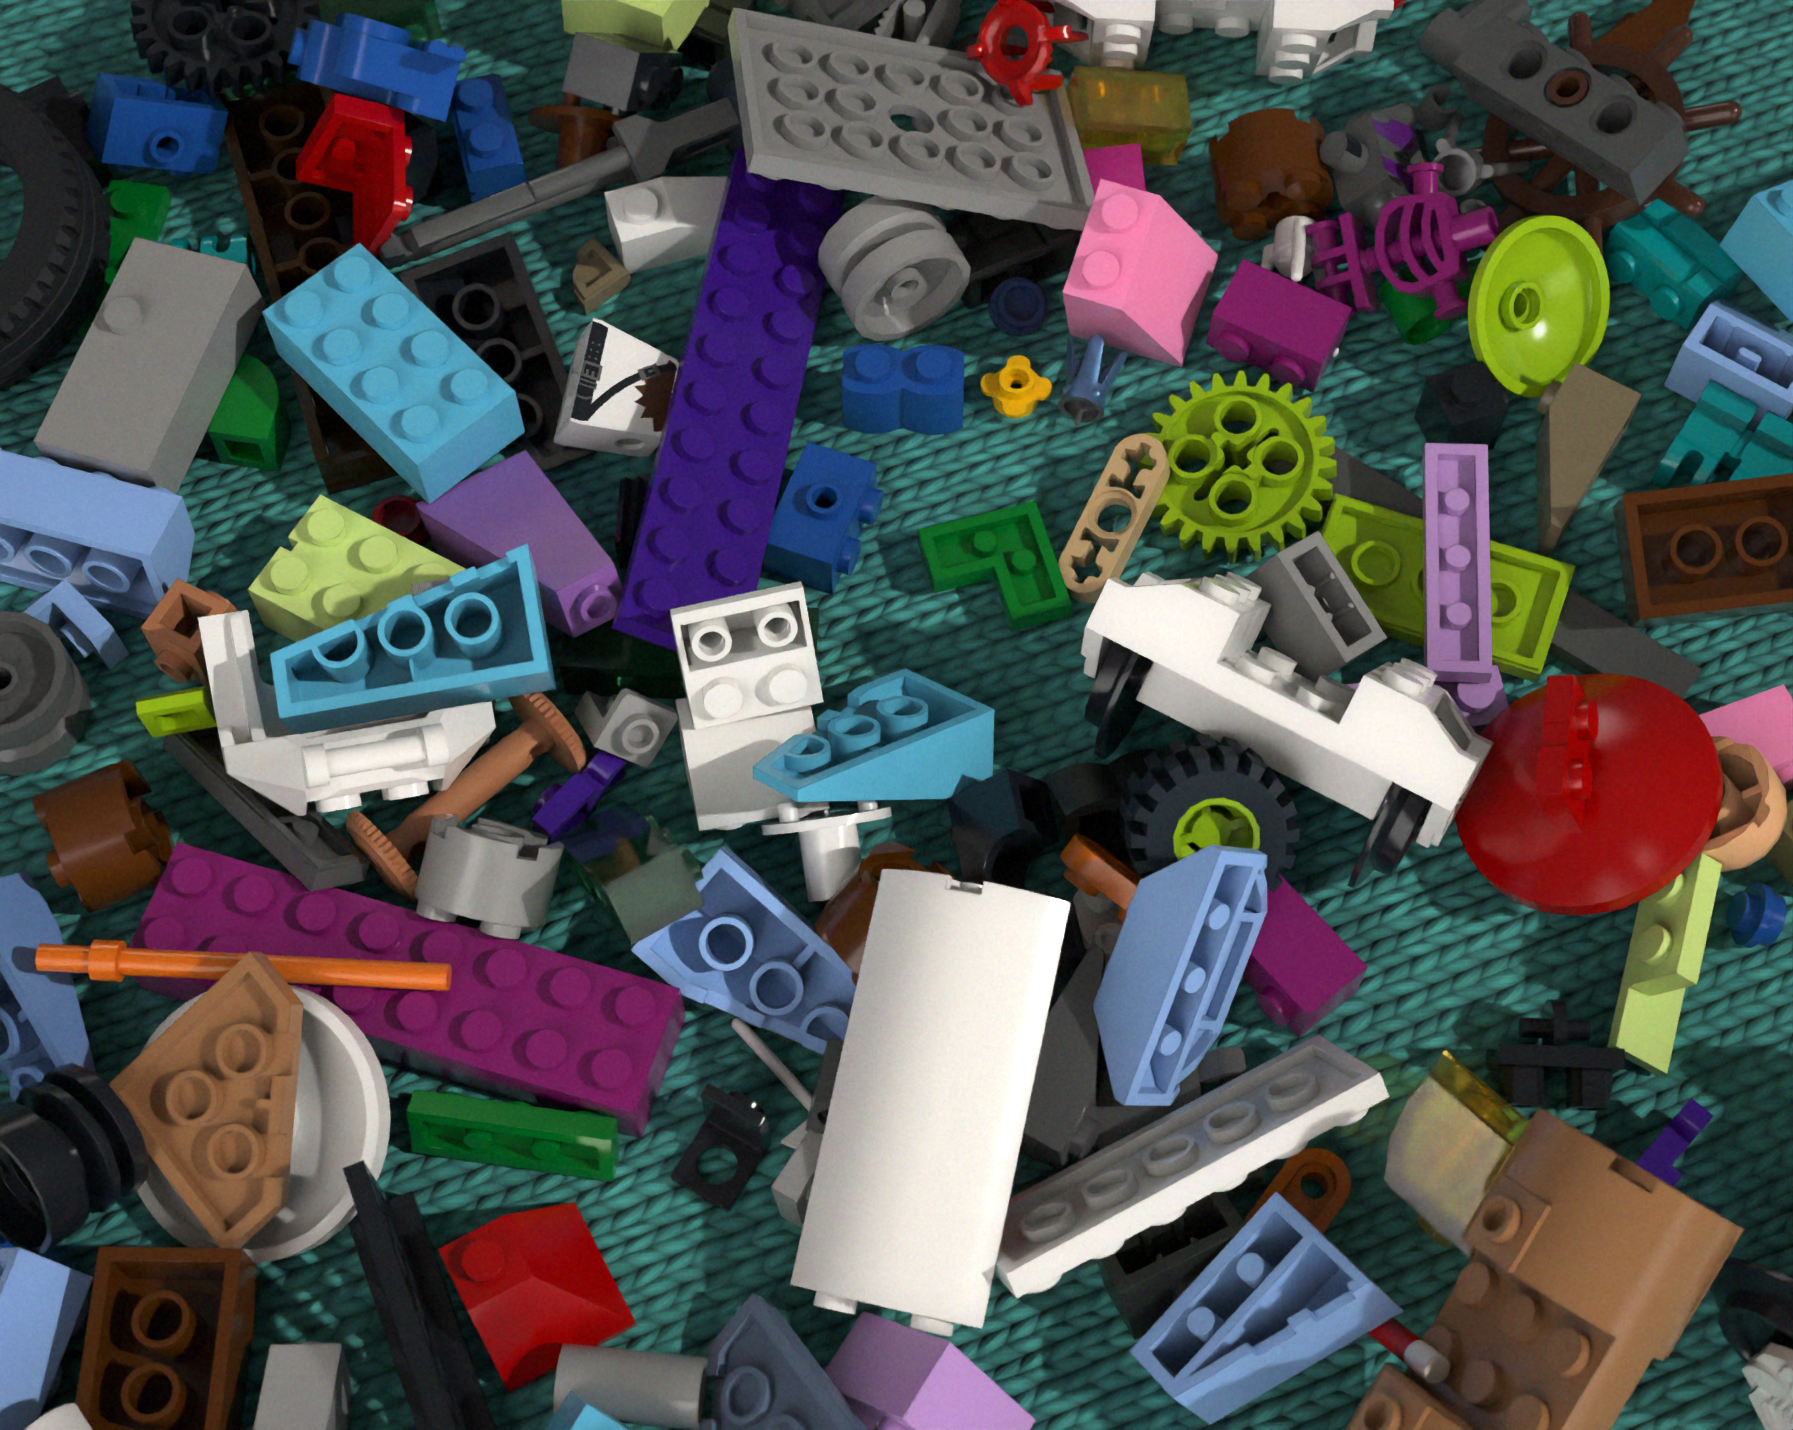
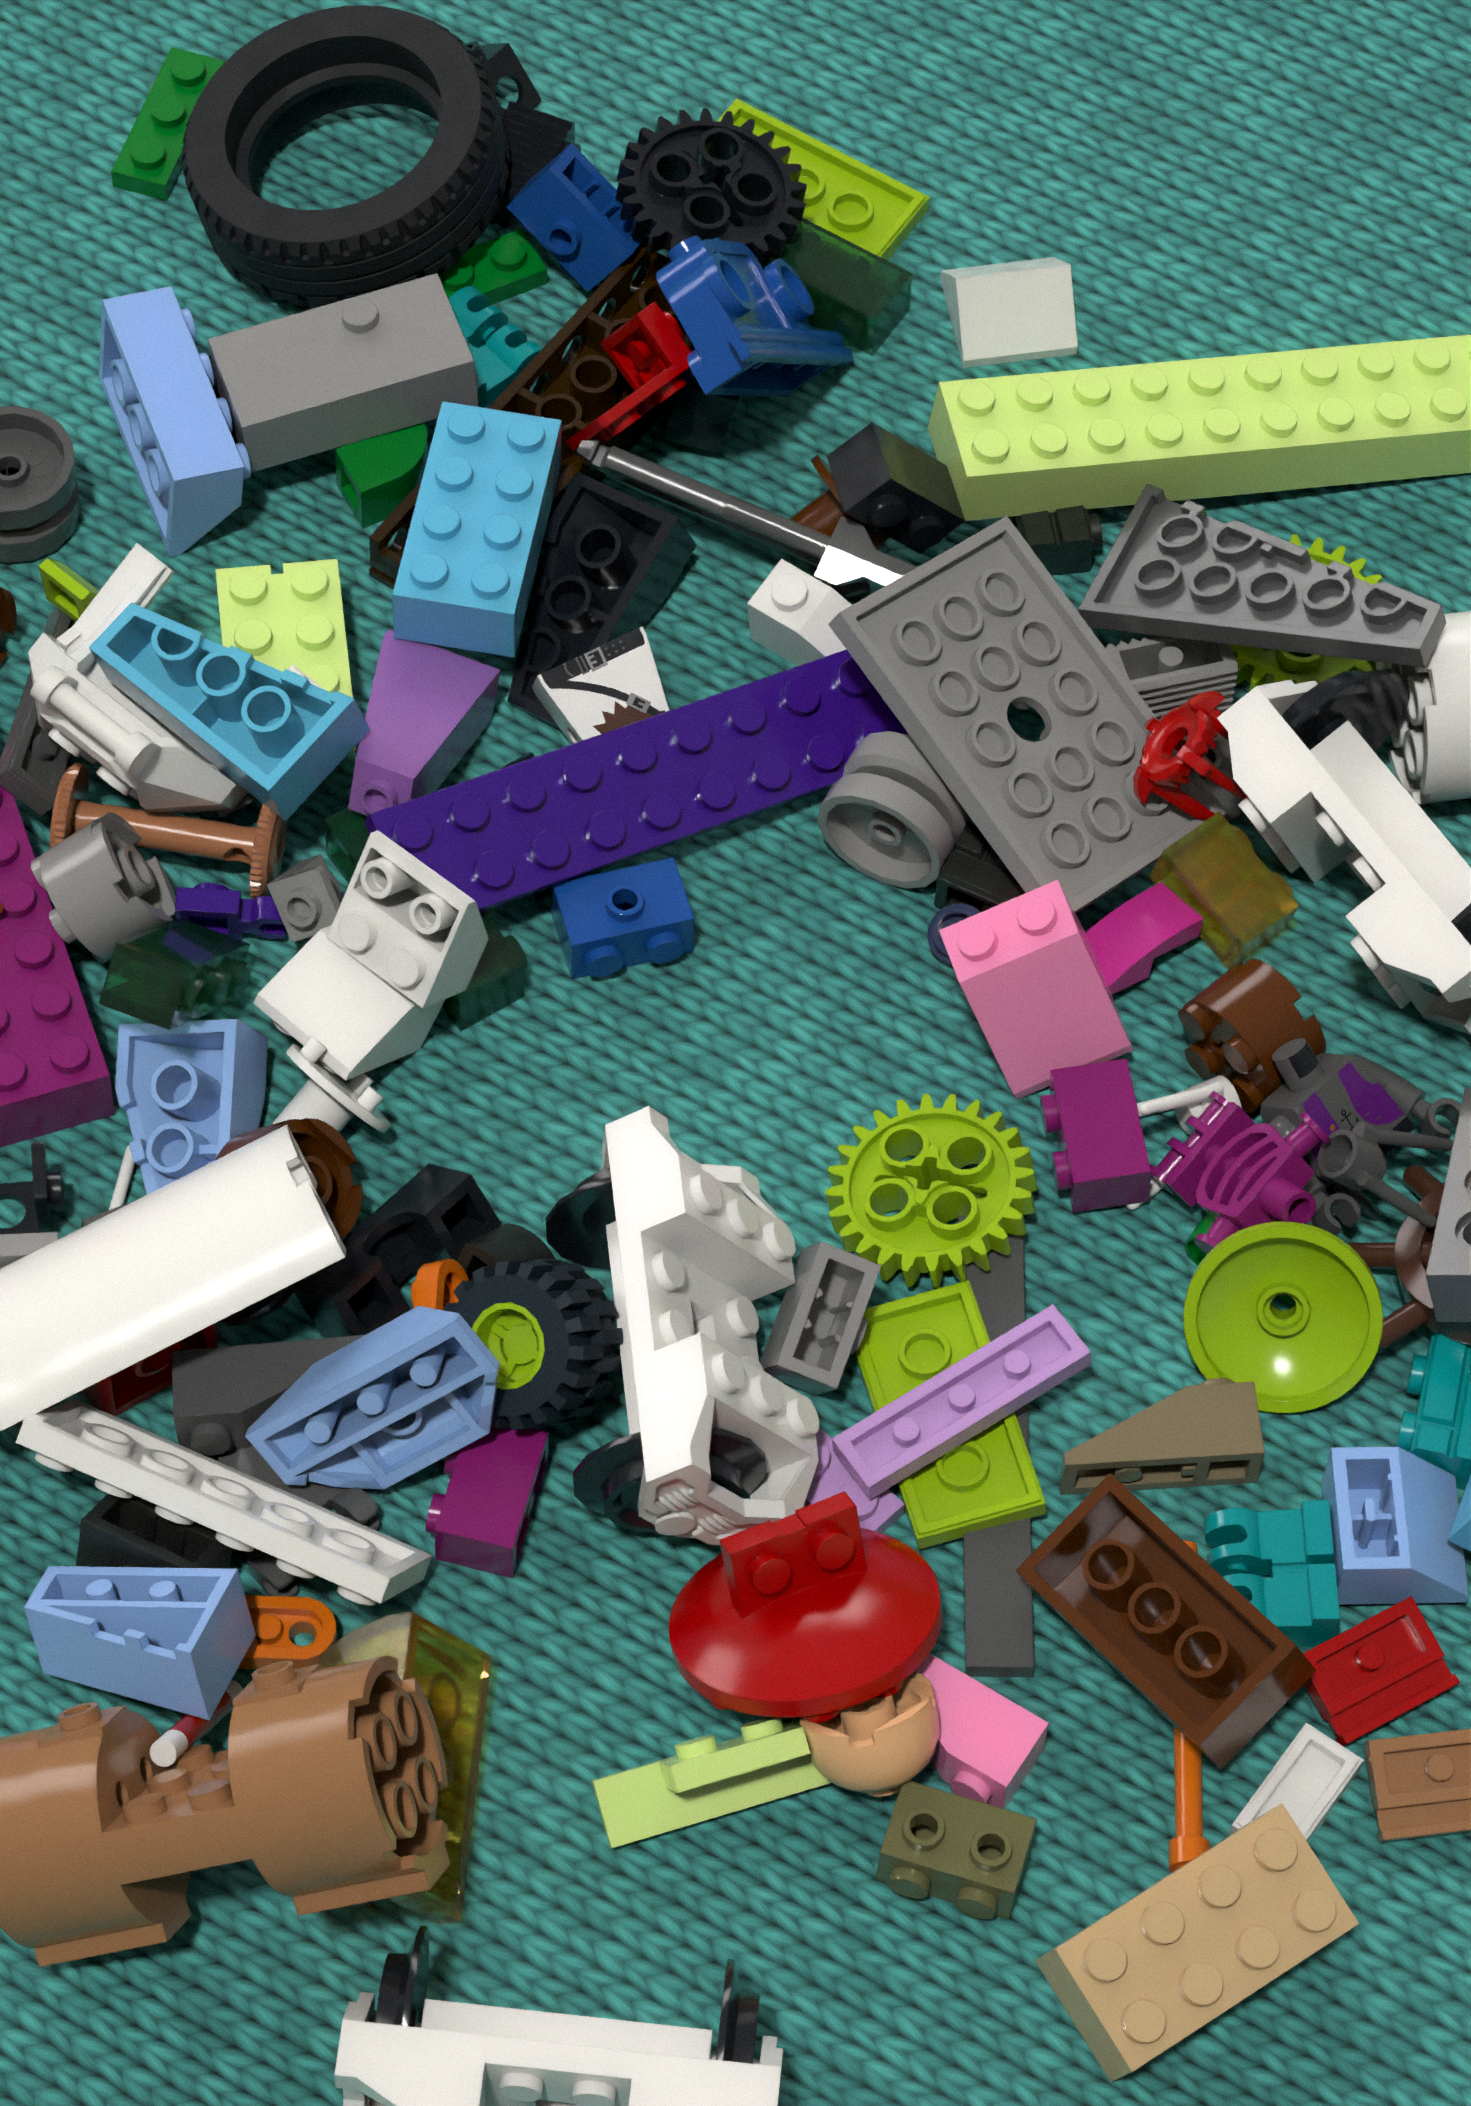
camera: 50 degrees right, 5 degrees down
(78, 622) = (111, 486): light blue bracket -> none
(175, 630) = (167, 542): nougat brick -> none
(402, 517) = (366, 634): dark red plate -> none
(486, 136) = (777, 448): blue brick -> none
(597, 276) = (724, 618): dark tan tile -> none
(890, 743) = (445, 1096): medium azure wedge -> none
(903, 389) = (795, 899): blue brick -> none
(1002, 547) = (706, 1069): green plate -> none
(1011, 401) = (872, 998): yellow plate -> none
(1085, 394) = (912, 1033): flat silver piece -> none
(1117, 472) = (822, 1142): tan beam -> none
(1462, 407) = (1136, 1329): black brick -> none
(1586, 1068) = (523, 1728): black hips -> none
(1673, 1141) = (514, 1874): dark purple plate -> none
(1756, 916) = (813, 1834): blue plate -> none

